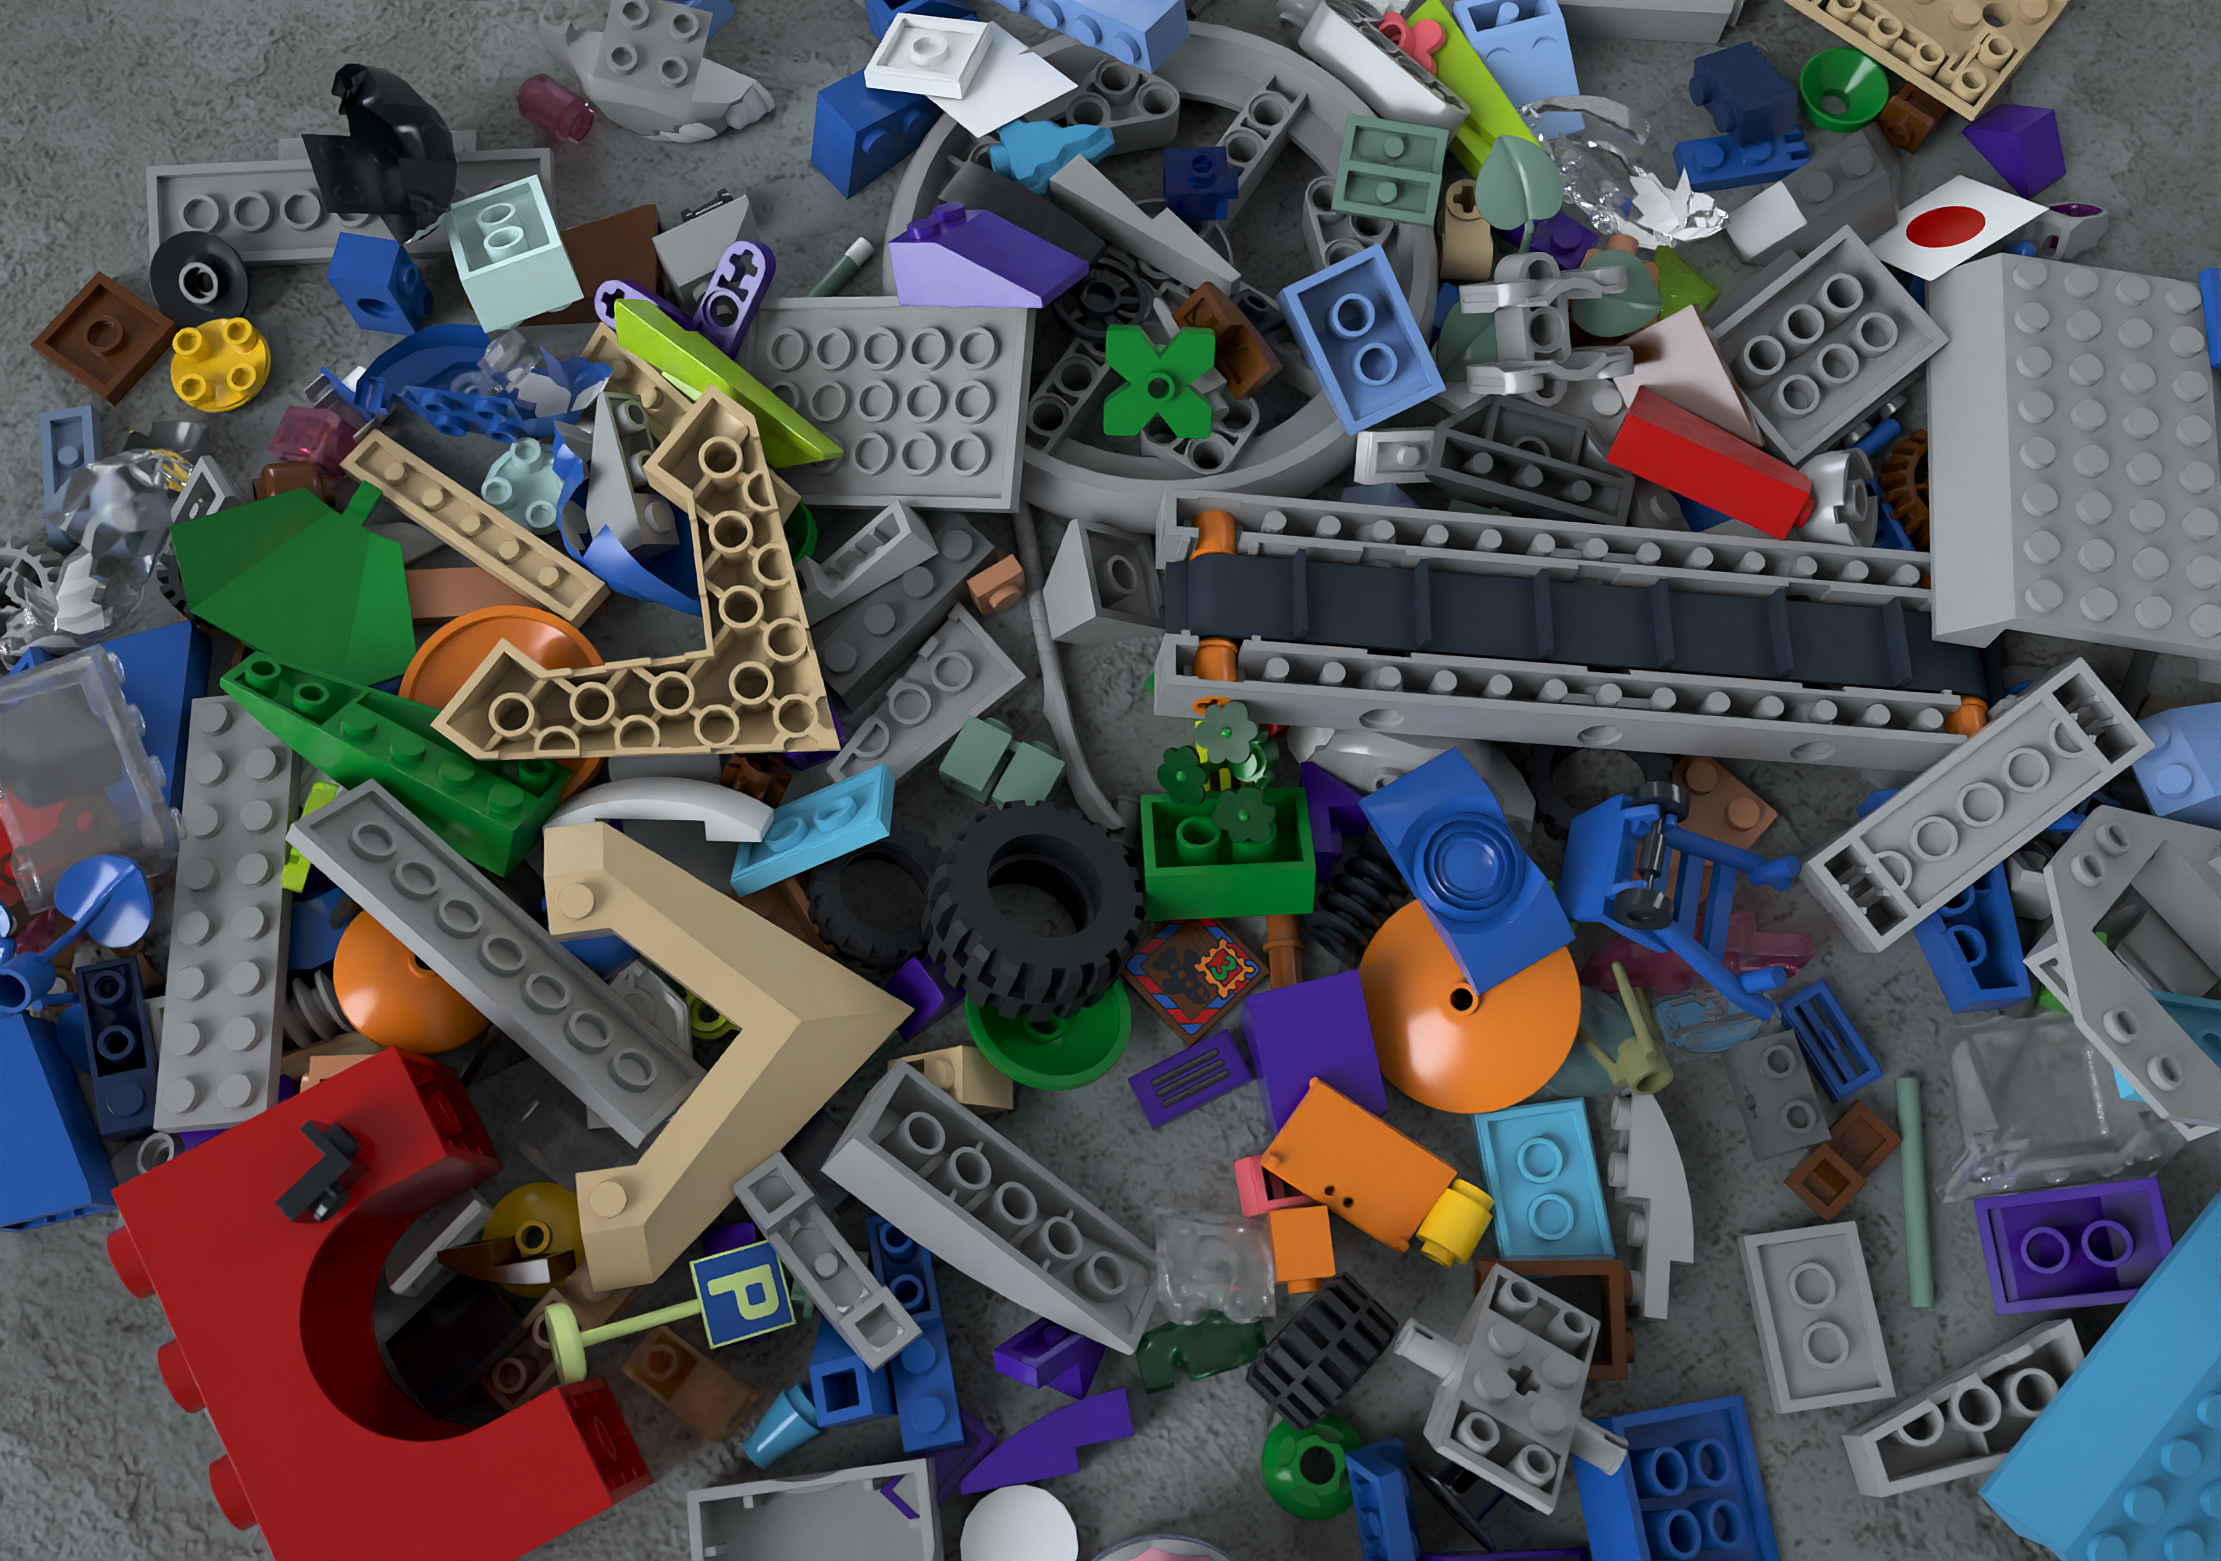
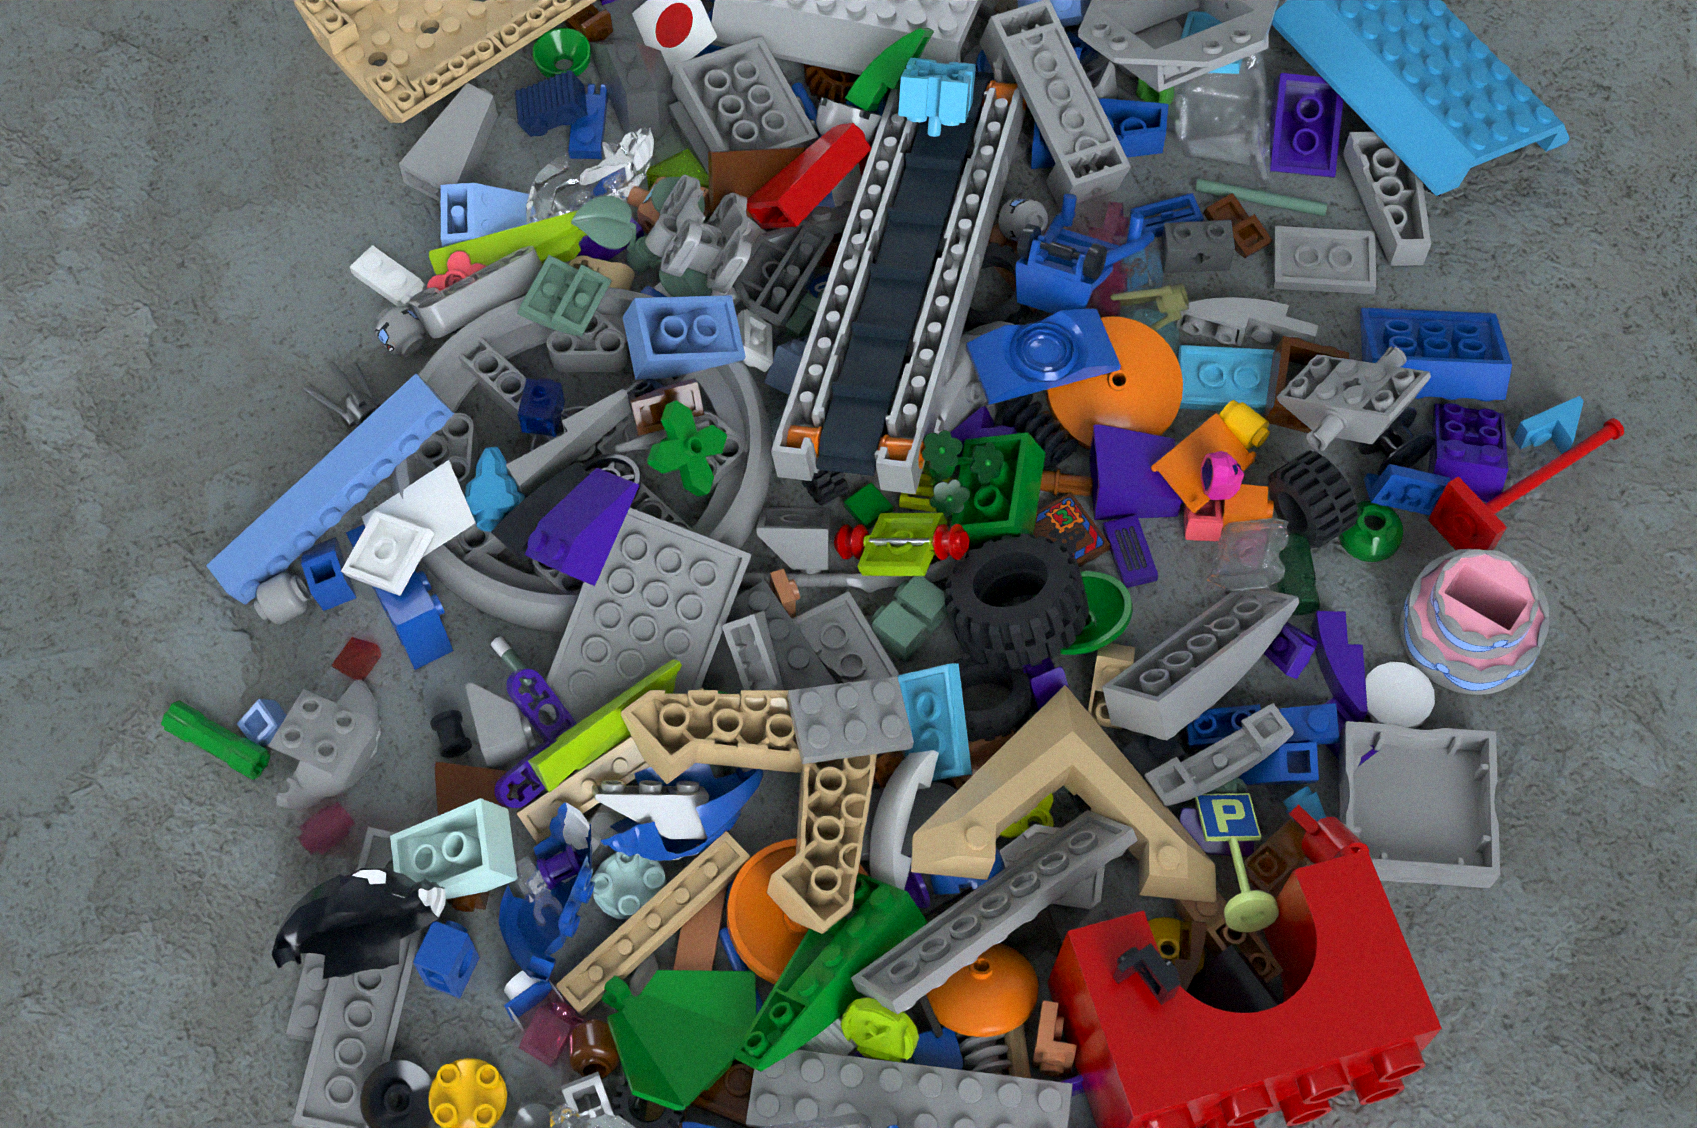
camera: 75 degrees left, 10 degrees down
(527, 385) = (560, 866): none -> dark purple bush
(696, 1456) = (1326, 837): none -> red piece
(771, 699) = (849, 719): none -> light grey plate
(803, 84) = (357, 658): none -> clear red slope
(1104, 730) = (901, 543): none -> lime plate
(1322, 1192) = (1220, 475): none -> dark pink rock
(1728, 801) = (1018, 213): none -> light grey head
(1900, 599) = (936, 91): none -> medium azure brick
(1935, 532) = (887, 69): none -> green slope

